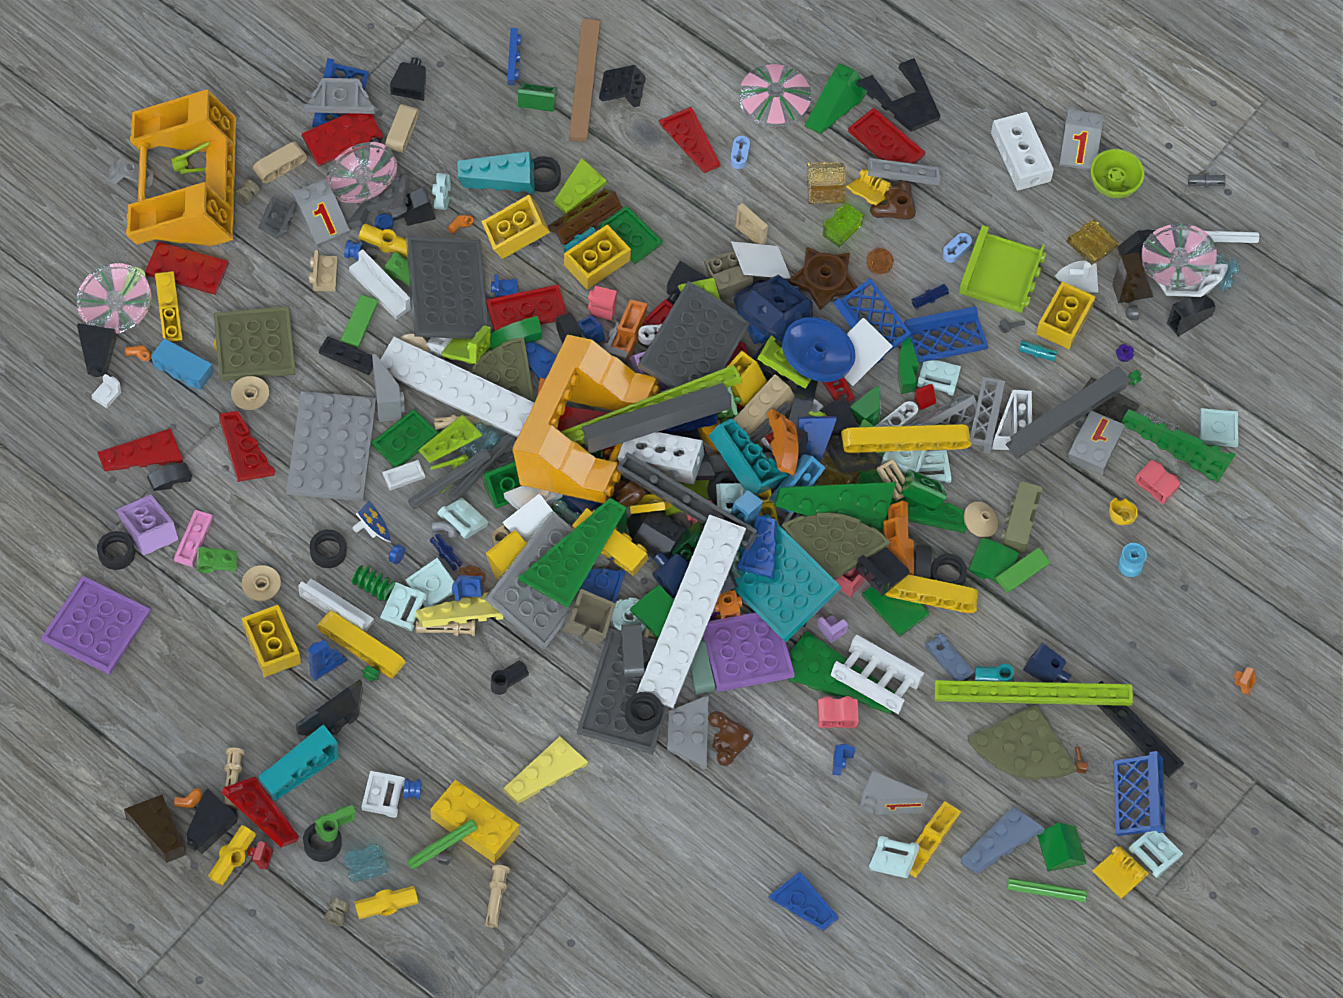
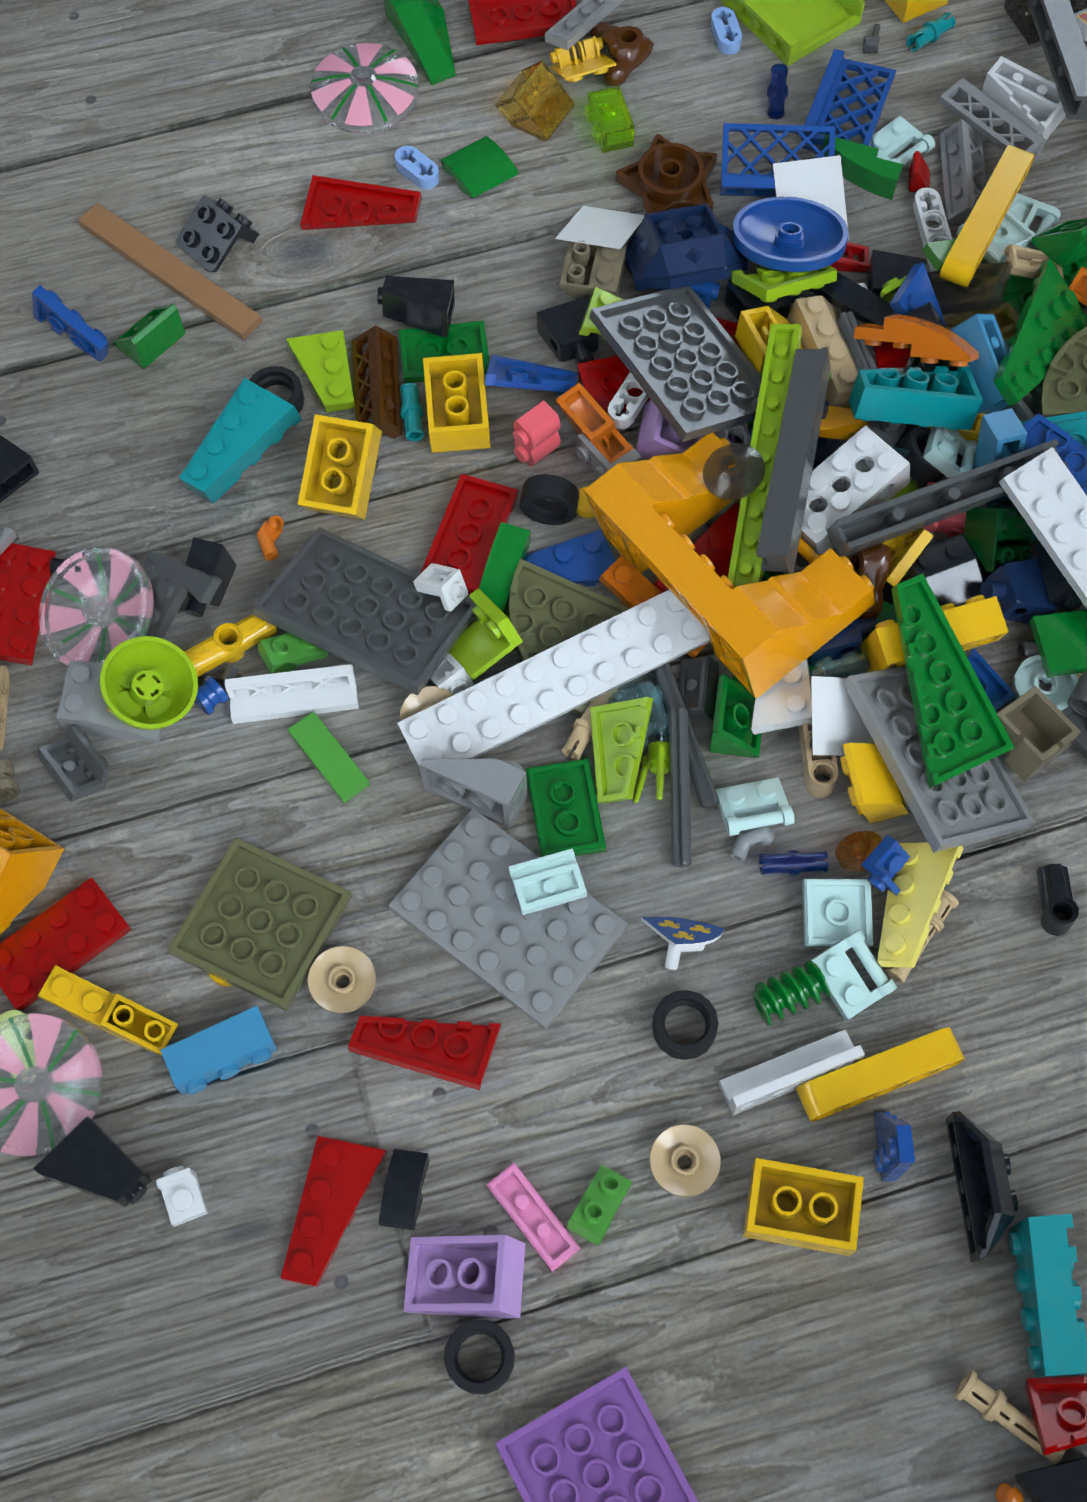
camera: 50 degrees left, 5 degrees up
(139, 351) = (147, 1101): orange arm -> none
(324, 272) = (213, 756): tan bracket -> none
(333, 208) = (151, 667): none -> lime piece
(347, 355) = (372, 805): black tile -> none
(356, 447) = (547, 881): none -> light aqua plate
(370, 673) = (938, 1090): green plate -> none
(384, 222) = (192, 631): blue tile -> none
(396, 554) = (755, 932): blue tile -> none
(402, 128) = (63, 519): tan beam -> none
(403, 475) = (623, 846): white tile -> none
(441, 191) = (207, 525): light aqua plate -> none
(483, 312) = (442, 582): none -> white bracket
(503, 287) = (414, 542): blue bracket -> none
(591, 329) = (561, 467): blue bracket -> none
(632, 397) = (736, 481): none -> clear smoke dish
(638, 278) = (528, 375): none -> blue wing
(648, 205) = (419, 302): none -> black slope
(751, 225) = (544, 206): tan plate -> none
(762, 181) = (479, 167): none -> green slope
(868, 407) = (903, 233): green slope -> none
(880, 261) = (690, 112): clear orange plate -> none

